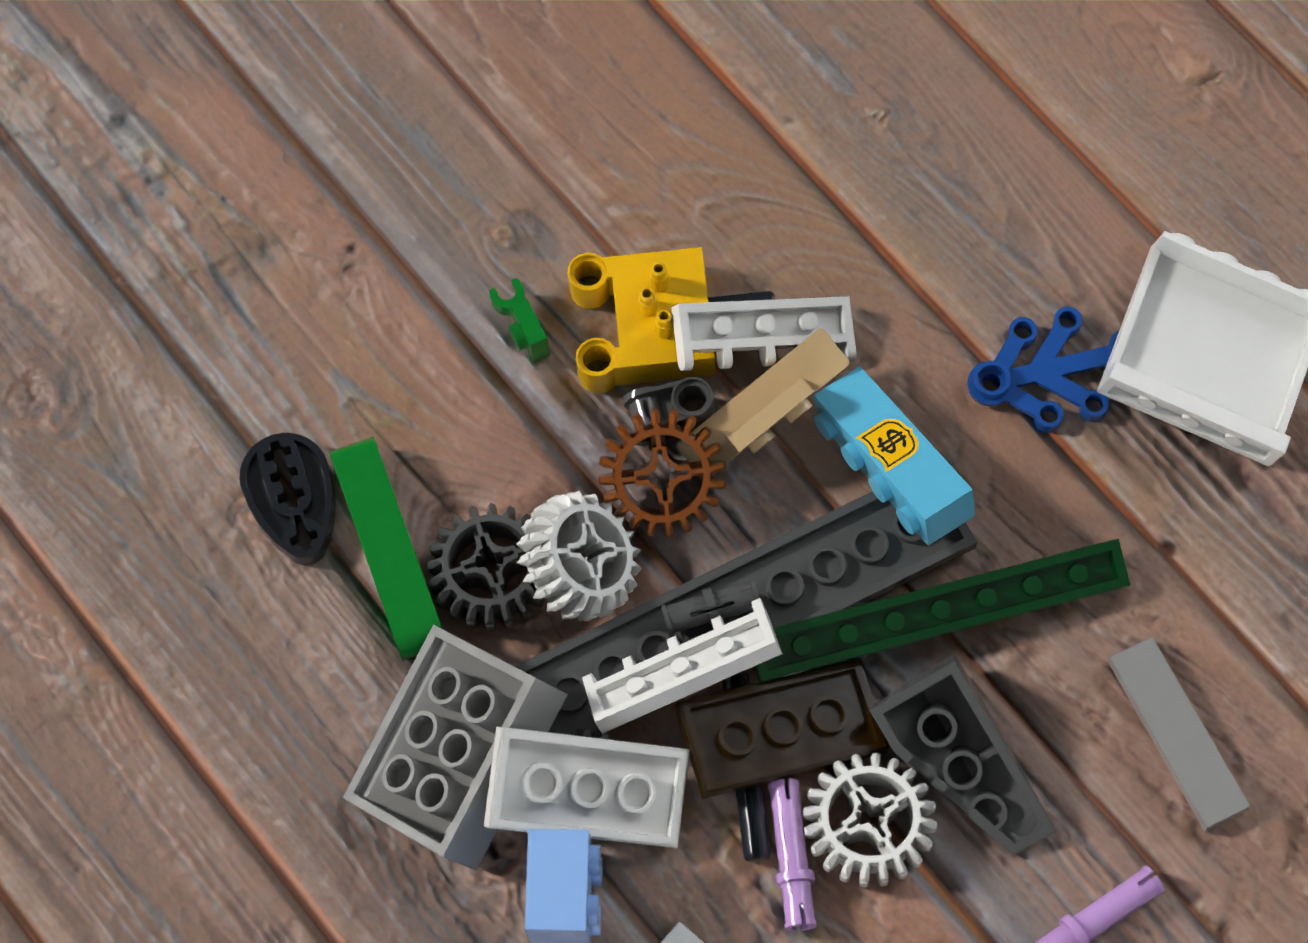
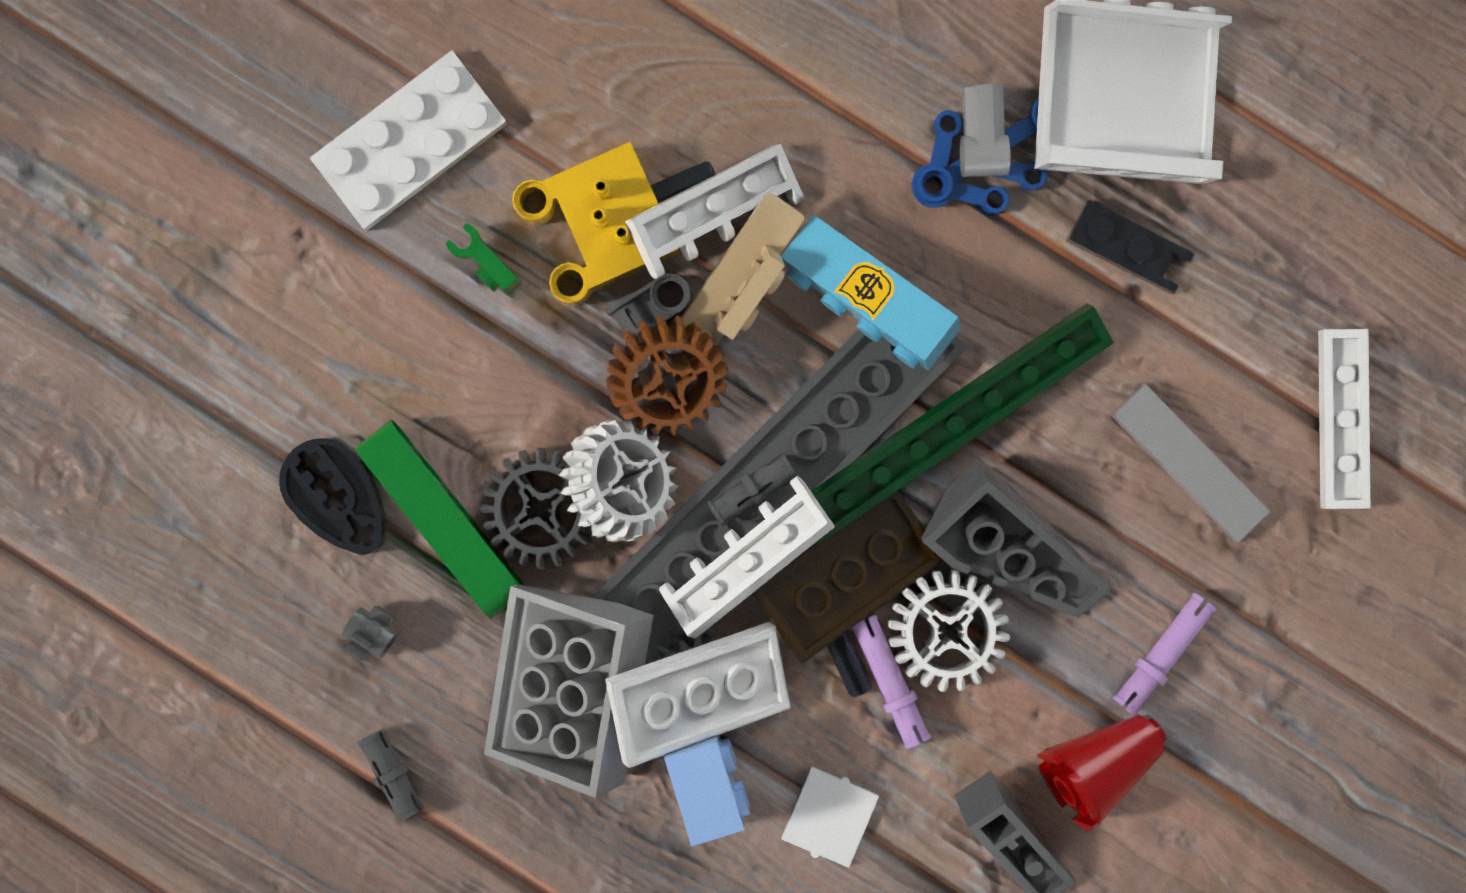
camera: 20 degrees left, 20 degrees up
(240, 784) = (391, 775): none -> dark grey pin
(274, 634) = (370, 633): none -> dark grey gear
(488, 194) = (408, 140): none -> white plate
(1053, 351) = (984, 144): none -> light grey piece
(1173, 499) = (1126, 245): none -> black hinge

